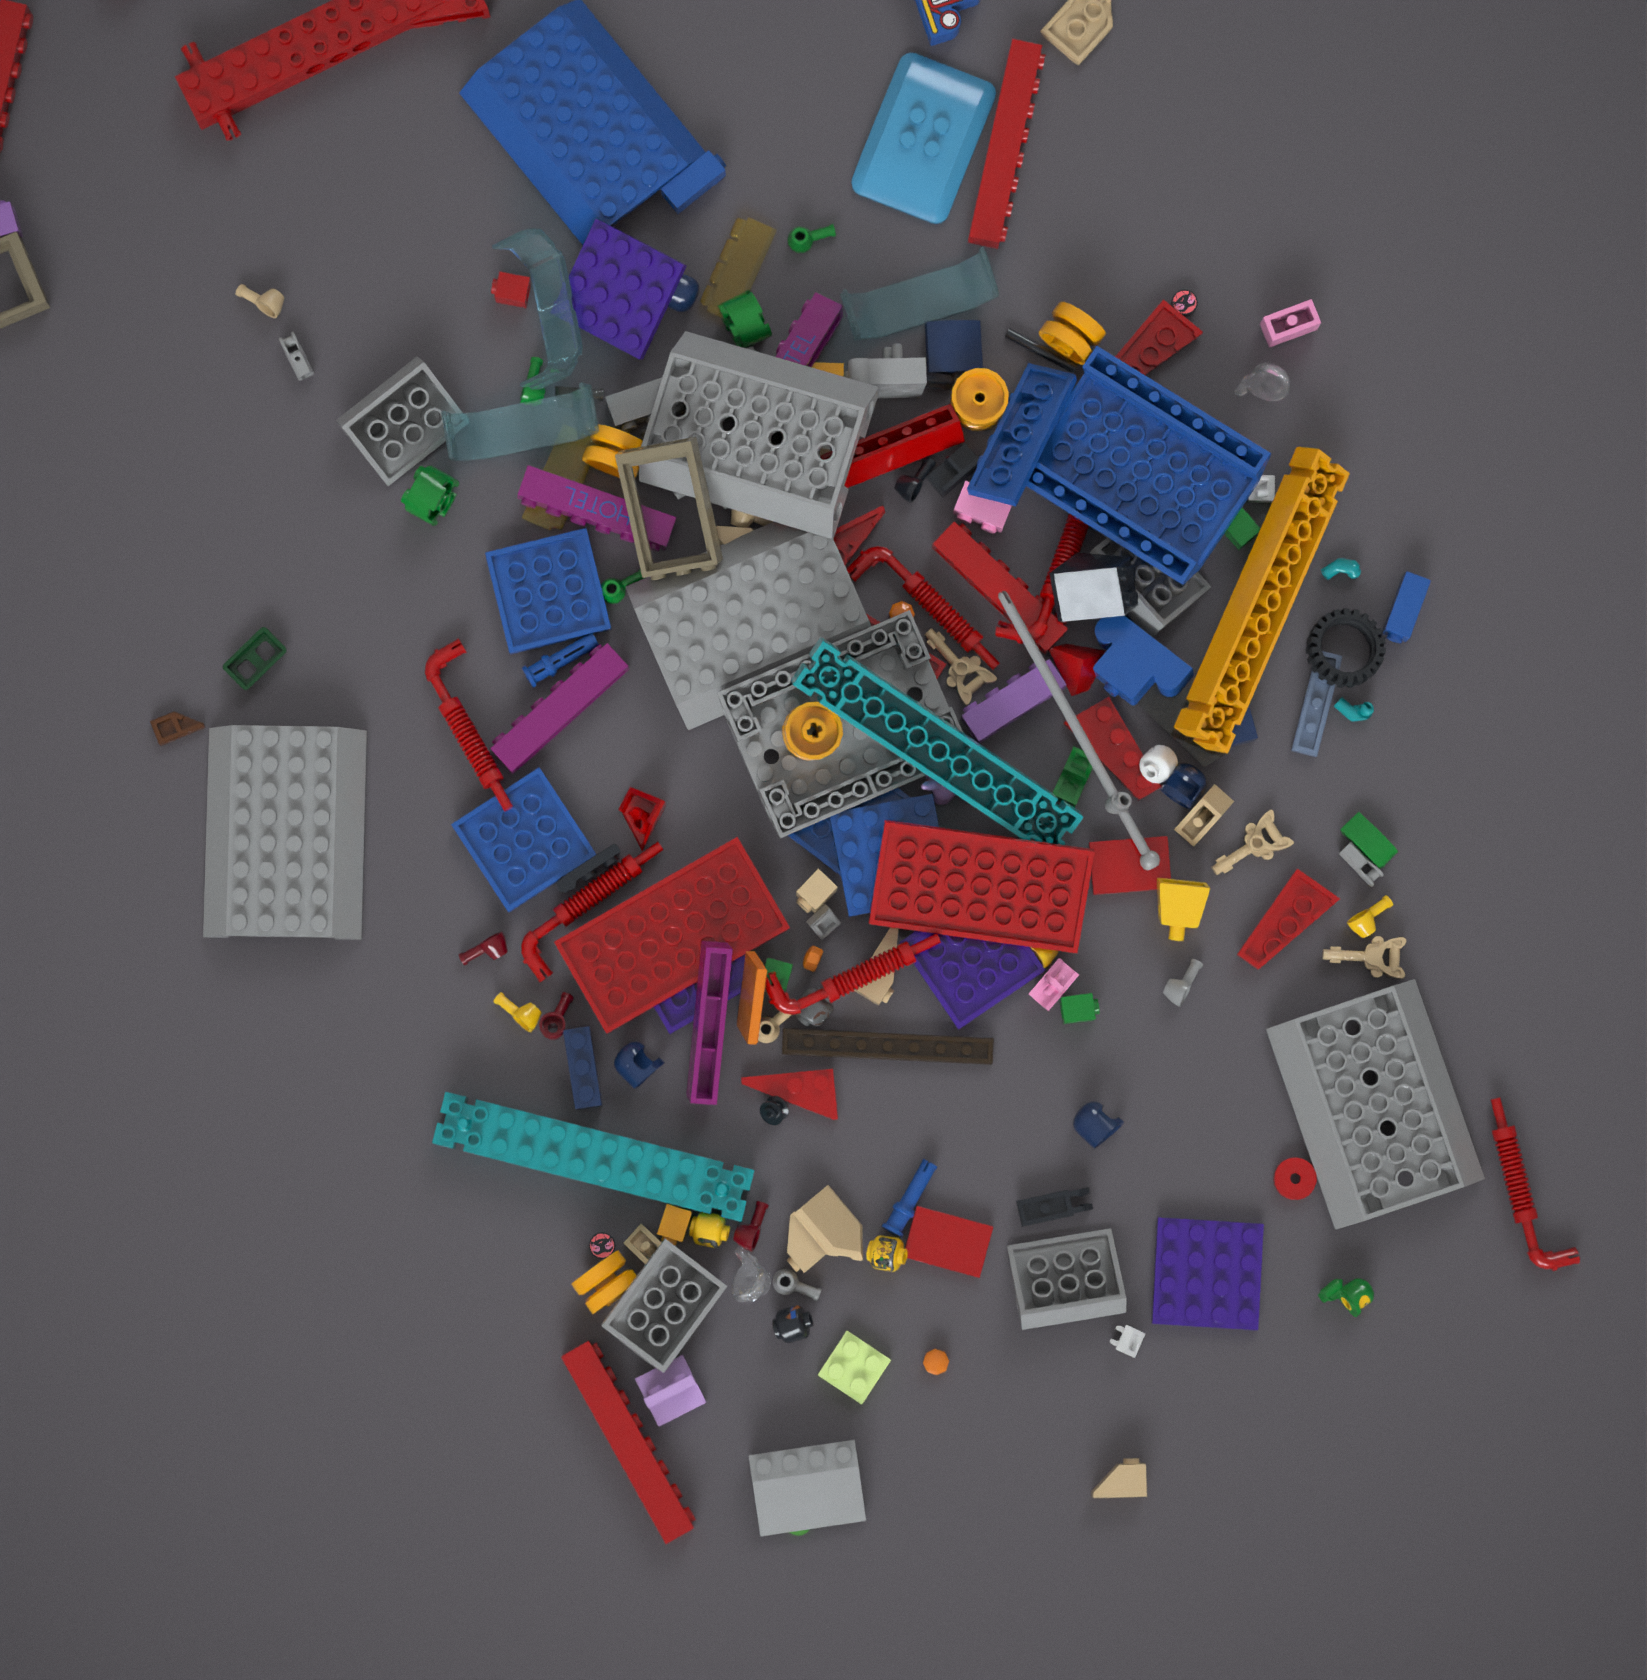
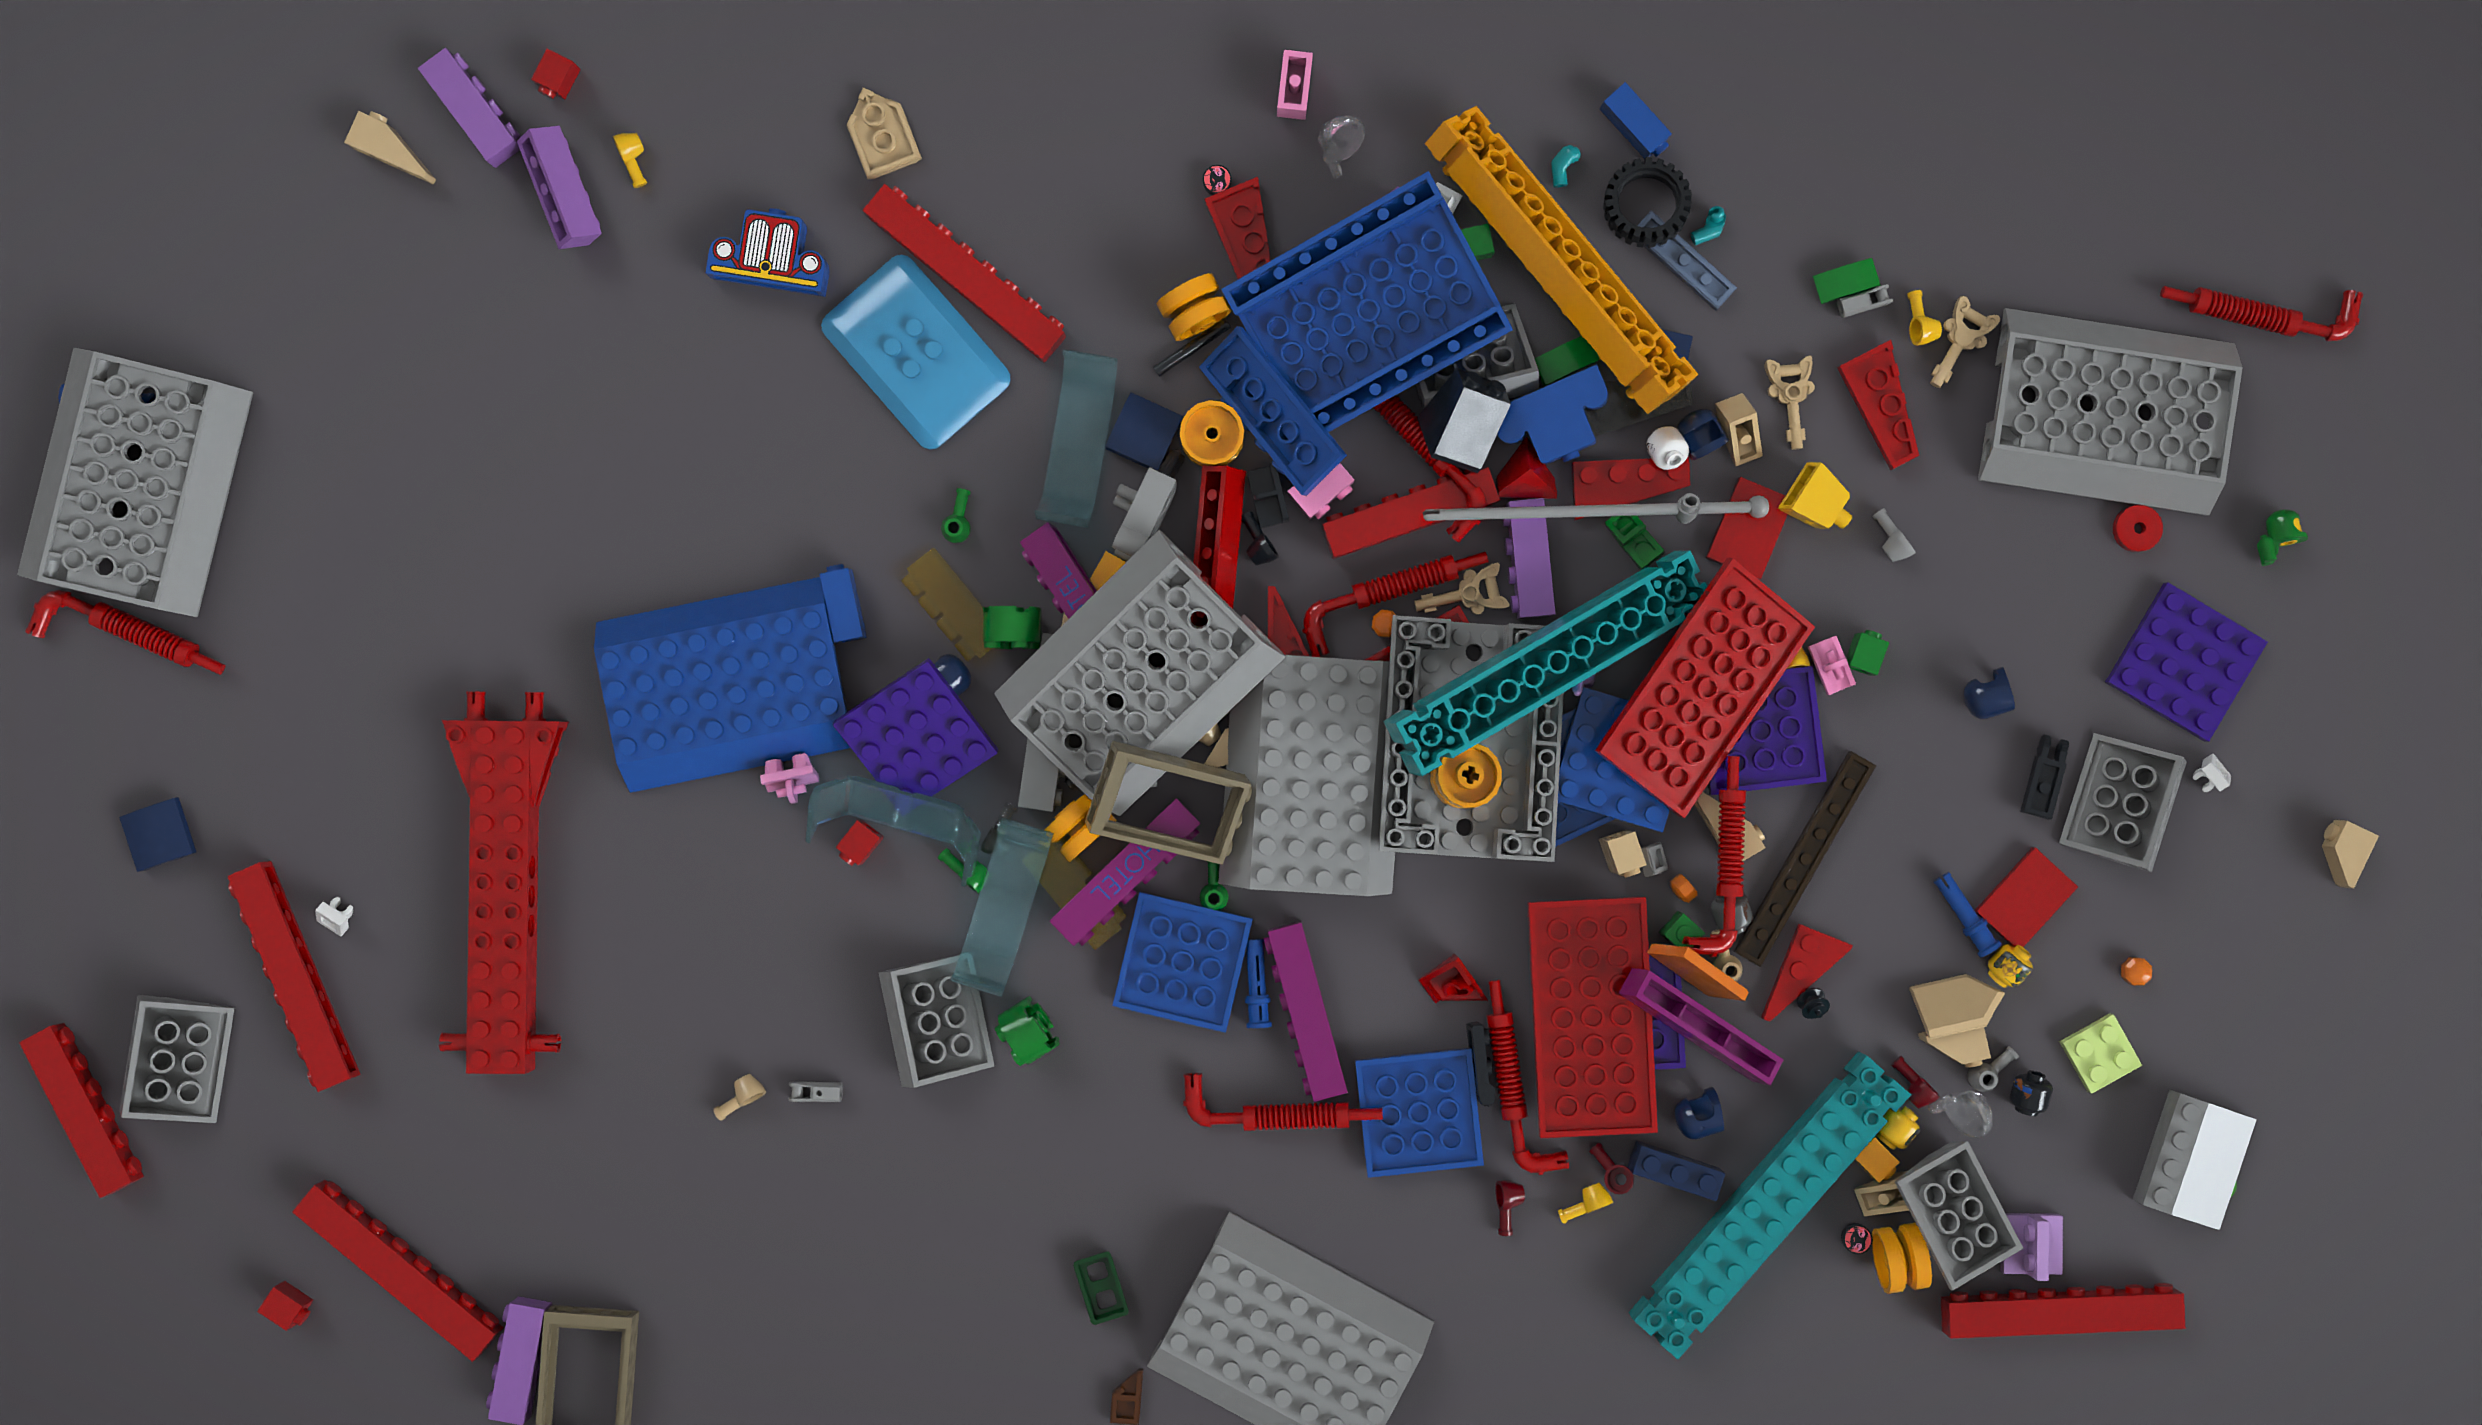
camera: 55 degrees left, 5 degrees up
(533, 211) = (790, 781): none -> bright pink hips
(1184, 646) = (1565, 360): none -> green slope

